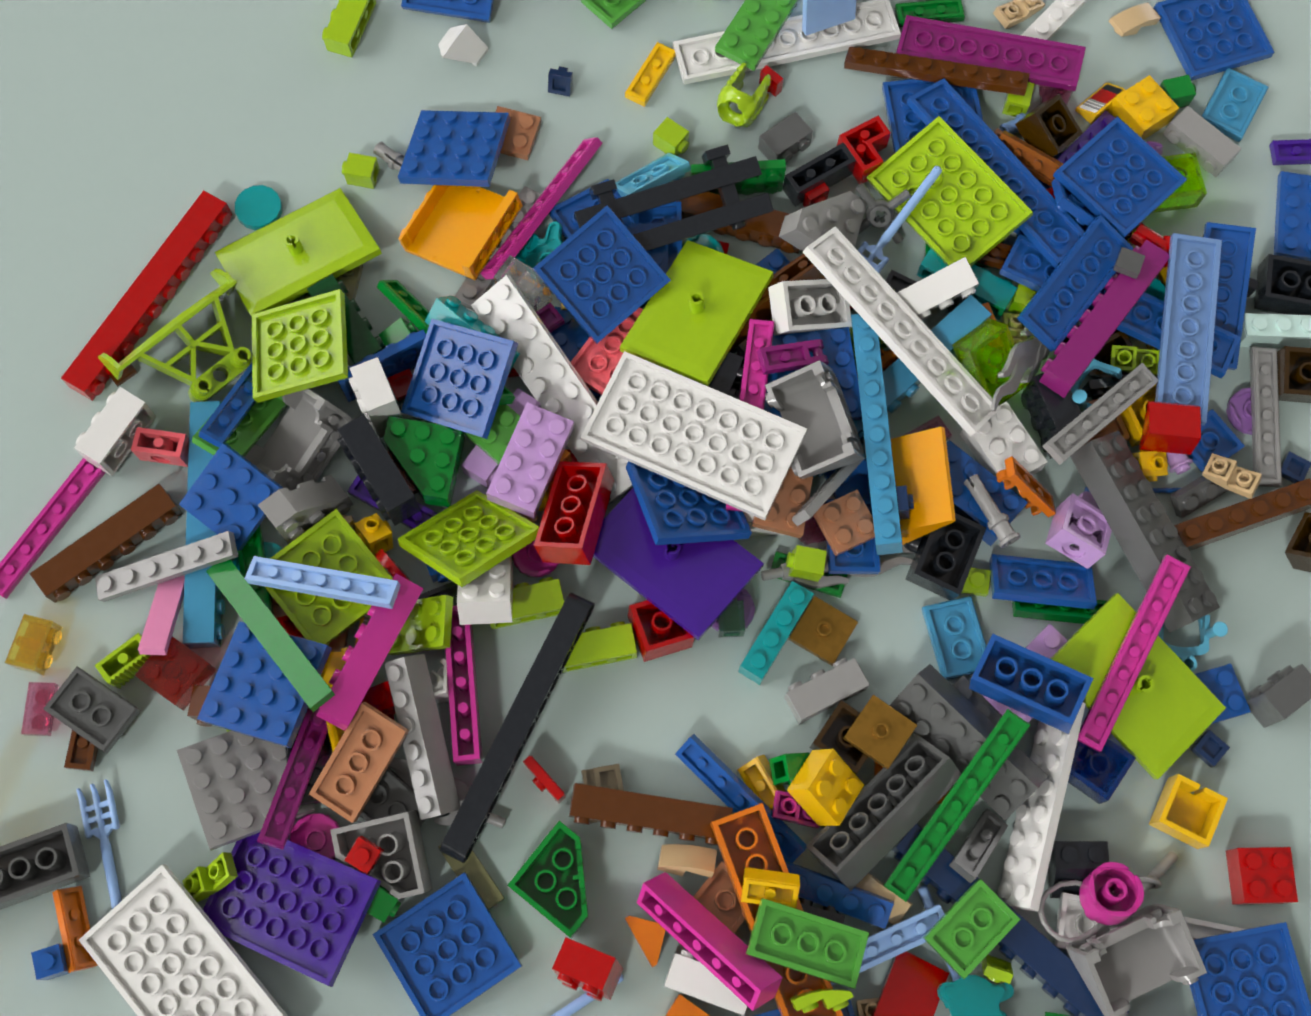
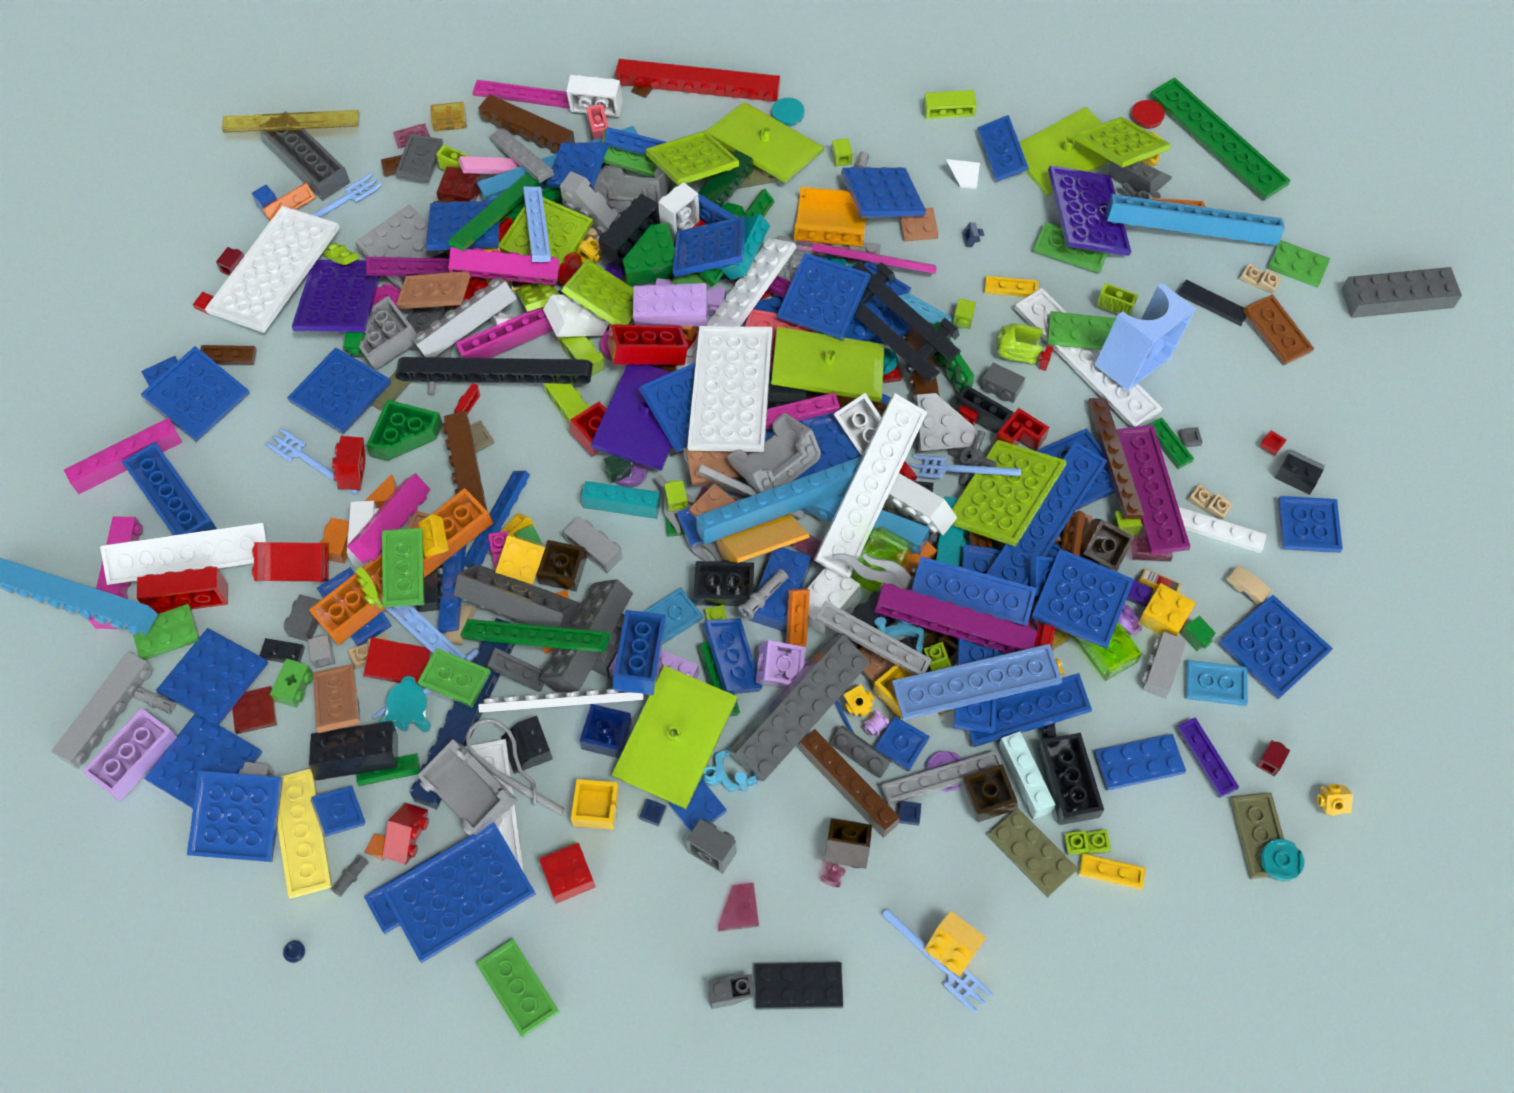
camera: 70 degrees right, 10 degrees down
(205, 385) = (646, 125): lime piece -> none
(364, 855) = (378, 316): red plate -> none
(690, 858) = (441, 494): tan slope -> none
(791, 356) = (814, 420): magenta plate -> none
(823, 630) = (637, 531): pearl gold plate -> none
(880, 732) = (570, 575): pearl gold plate -> none
(905, 502) = (738, 527): dark blue plate -> none
(997, 969) = (436, 712): lime plate -> none
(1111, 894) = (519, 755): dark pink brick -> none
(1129, 263) = (1006, 619): dark grey tile -> none
(1133, 653) = (695, 718): dark pink tile -> none
(1171, 428) = (886, 692): red slope -> none
(1231, 477) = (874, 758): tan slope -> none

